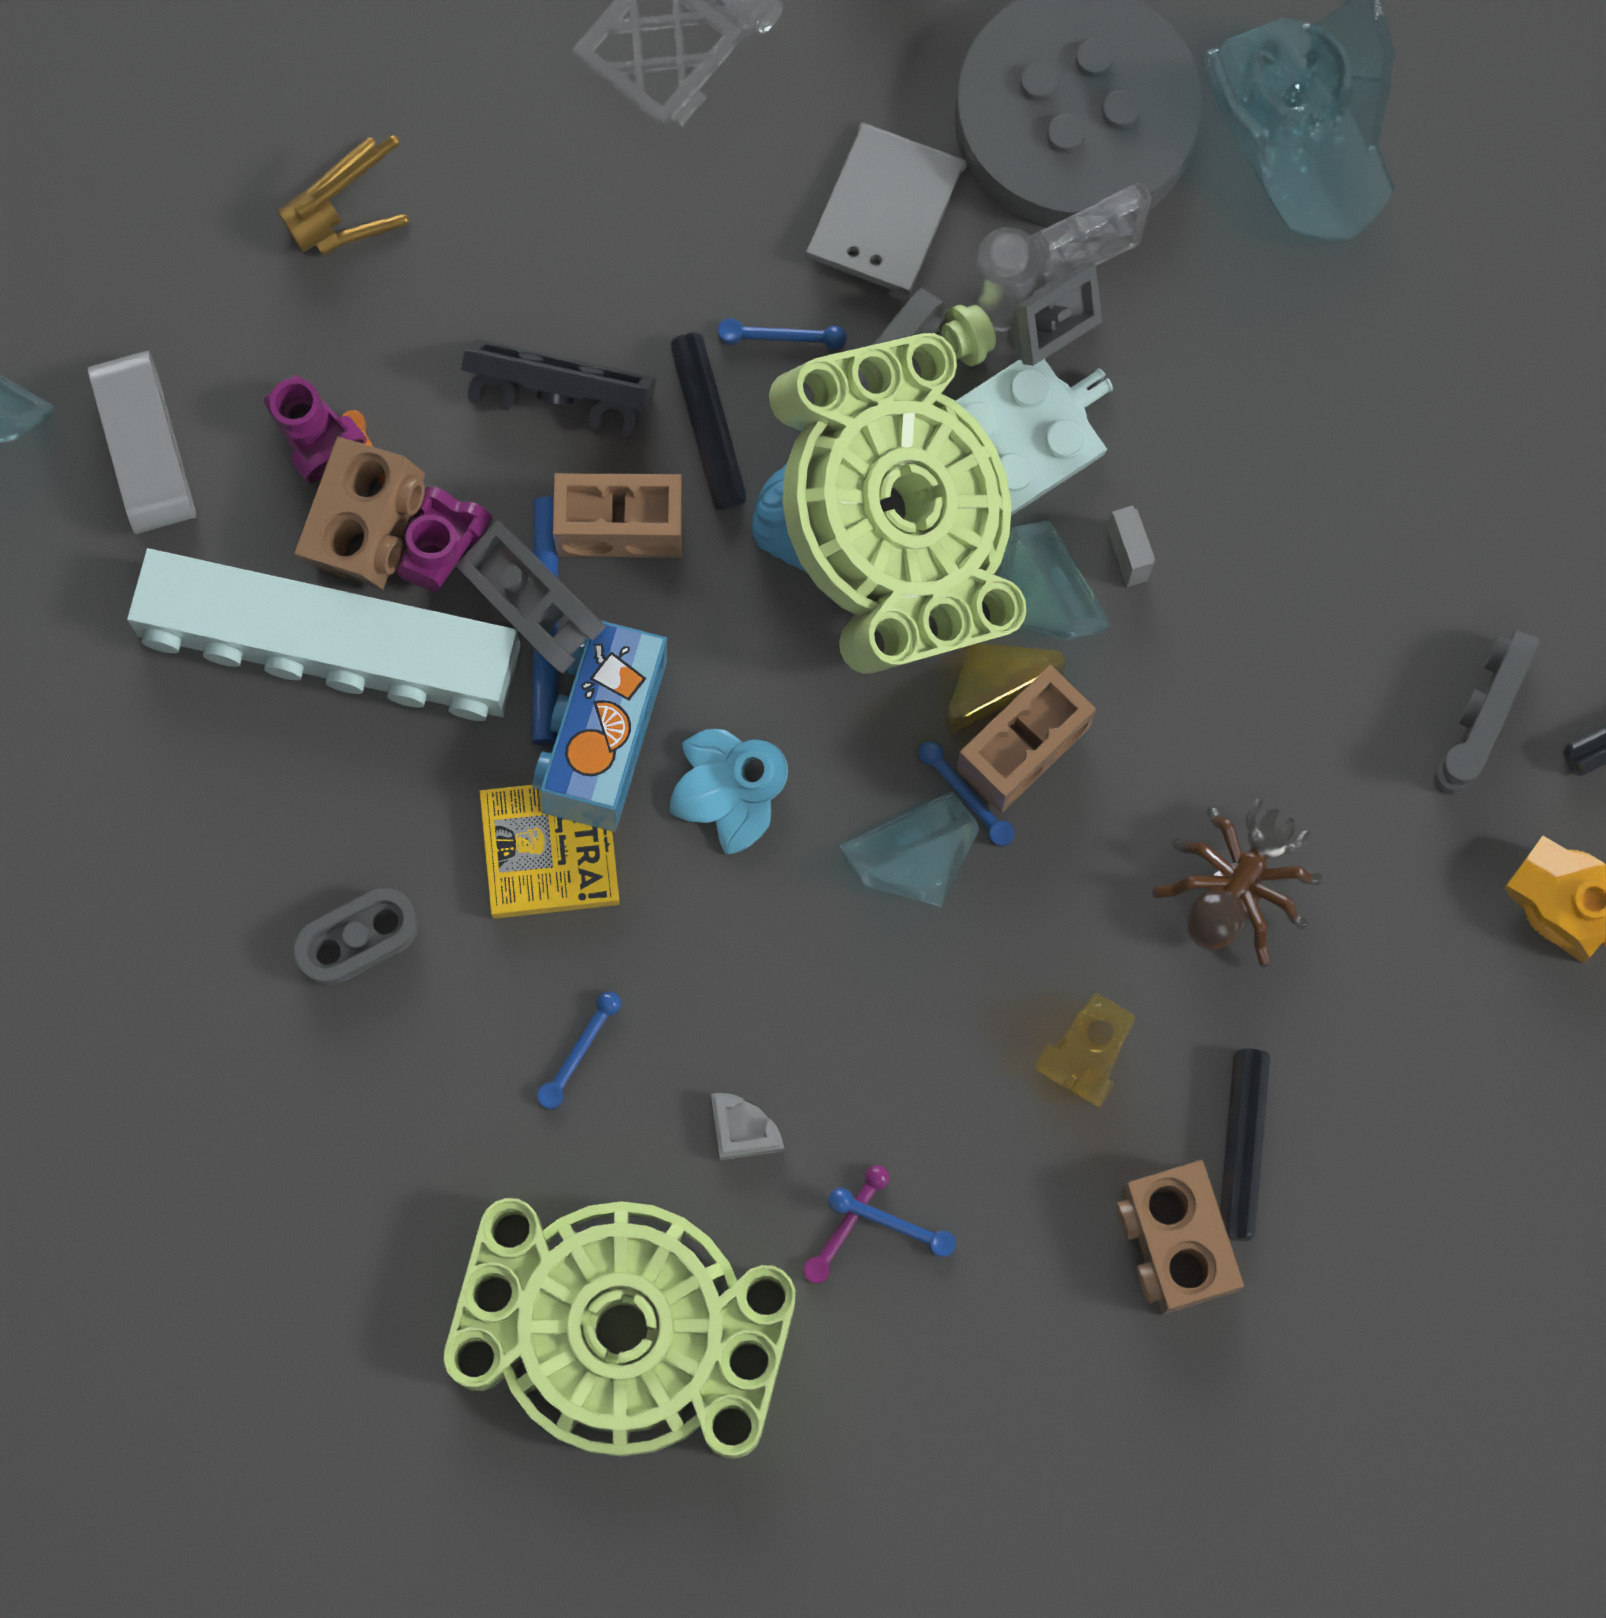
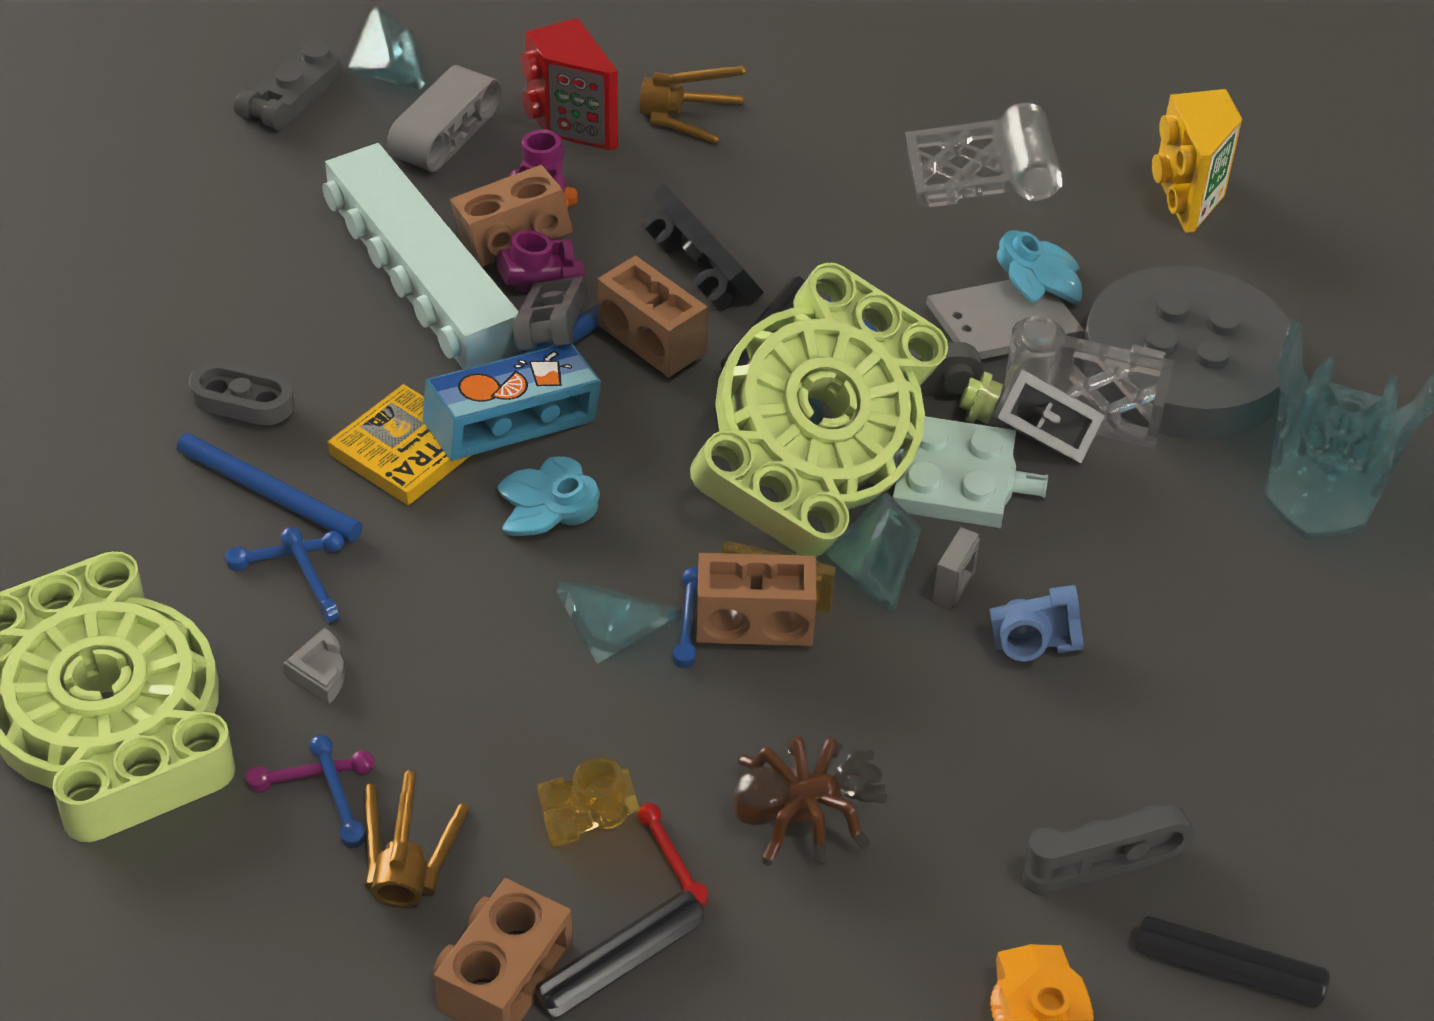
camera: 45 degrees right, 30 degrees down
(237, 299) = (571, 85): none -> red slope
(490, 1004) = (269, 487): none -> blue bar
(585, 1039) = (292, 539): none -> blue hinge
(868, 125) = (1039, 267): none -> medium azure plate
(1024, 1240) = (400, 871): none -> pearl gold plant
(1234, 1040) = (650, 817): none -> red hinge
(1239, 552) = (1032, 625): none -> medium blue plate

